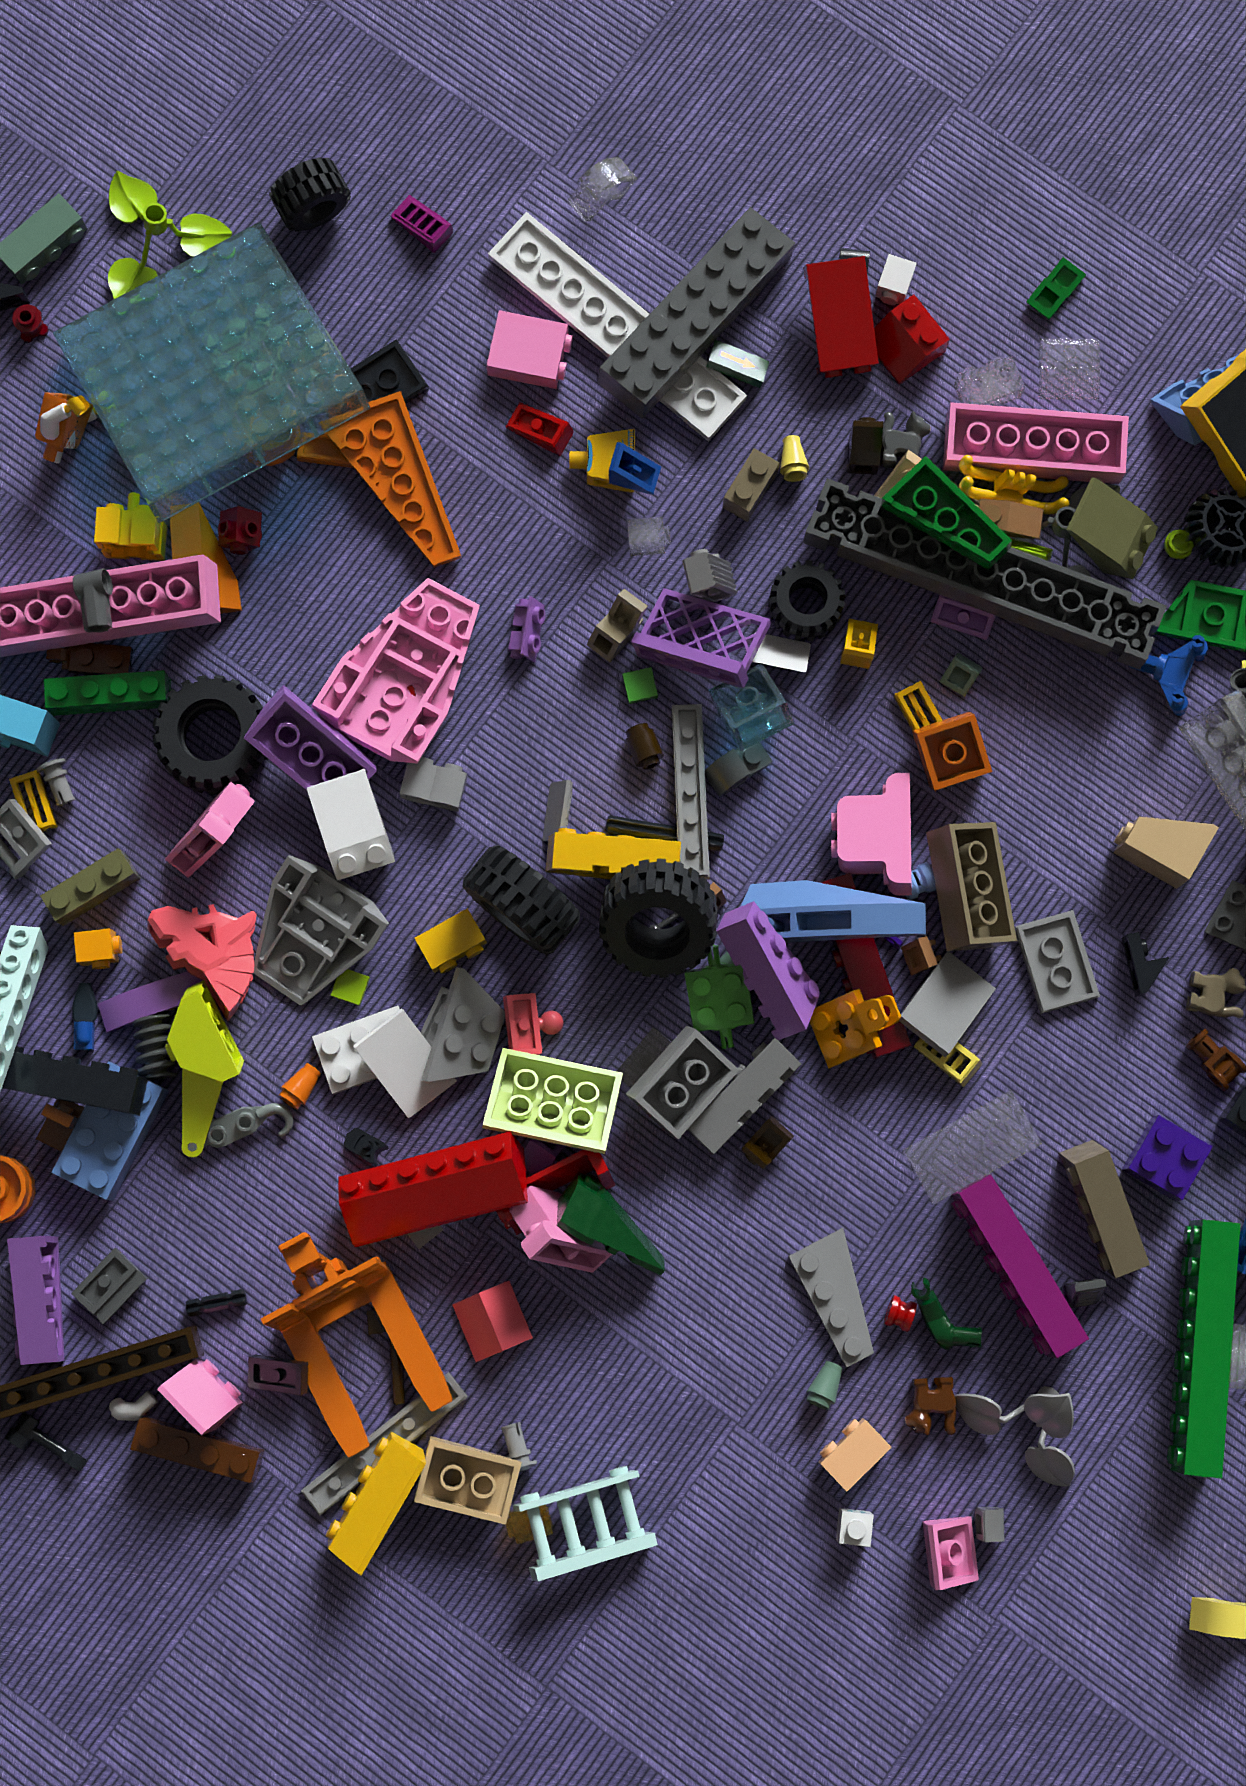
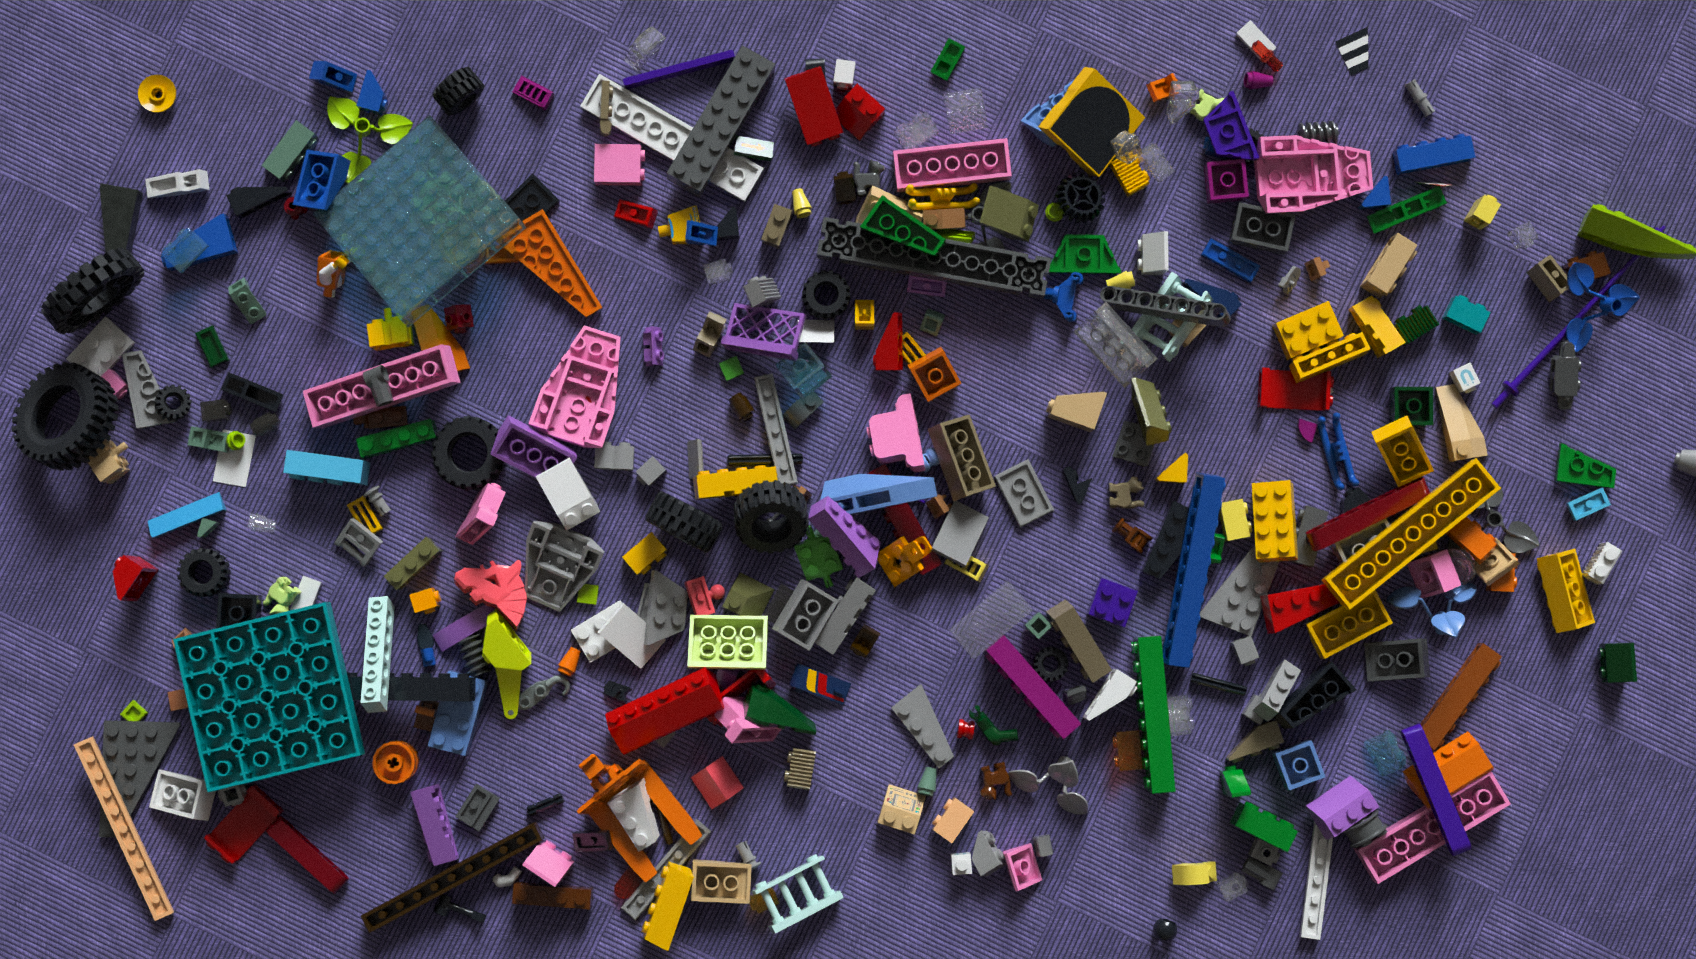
camera: 15 degrees left, 5 degrees up
(76, 283) = (320, 179): none -> blue slope
(128, 142) = (332, 76): none -> blue slope
(179, 182) = (372, 96): none -> blue slope
(319, 1455) = (627, 884): none -> clear red tile
(354, 1346) = (635, 814): none -> white wedge
(484, 817) = (650, 472): none -> light grey brick
(526, 264) = (606, 109): none -> dark tan hinge
(597, 1038) = (748, 596): none -> olive slope
(628, 1324) = (800, 768): none -> dark tan brick
(647, 228) = (678, 69): none -> dark purple tile
(677, 471) = (728, 226): none -> black slope
(682, 1196) = (819, 684): none -> dark blue door
(775, 1421) = (901, 809): none -> tan slope
(890, 699) = (890, 349): none -> red slope
(897, 1521) = (986, 855): none -> light grey slope
(1044, 1171) = (1037, 625): none -> sand green brick
(1066, 1223) = (1062, 663): none -> black tyre
(1147, 1297) = (1113, 691): none -> white slope
(1152, 1398) = (1128, 750): none -> clear orange bracket
(1163, 1700) = (1165, 929): none -> black piece

